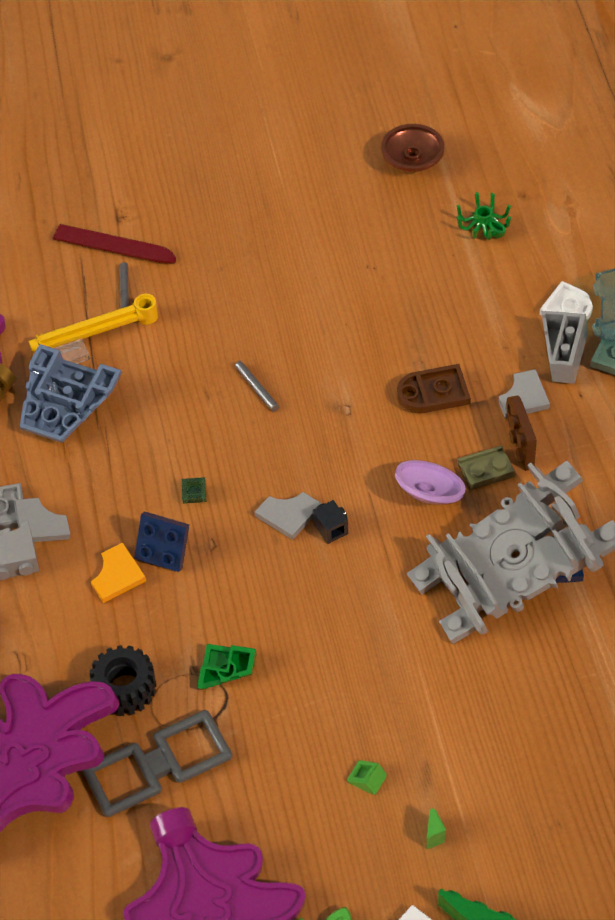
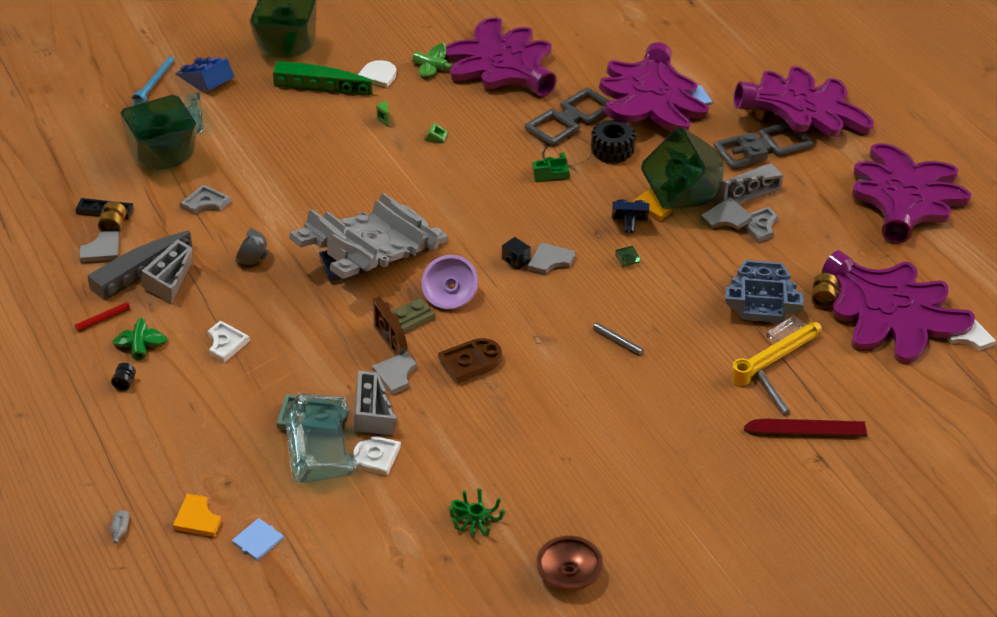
camera: 160 degrees right, 10 degrees down
(70, 548) = (683, 171): none -> clear green piece

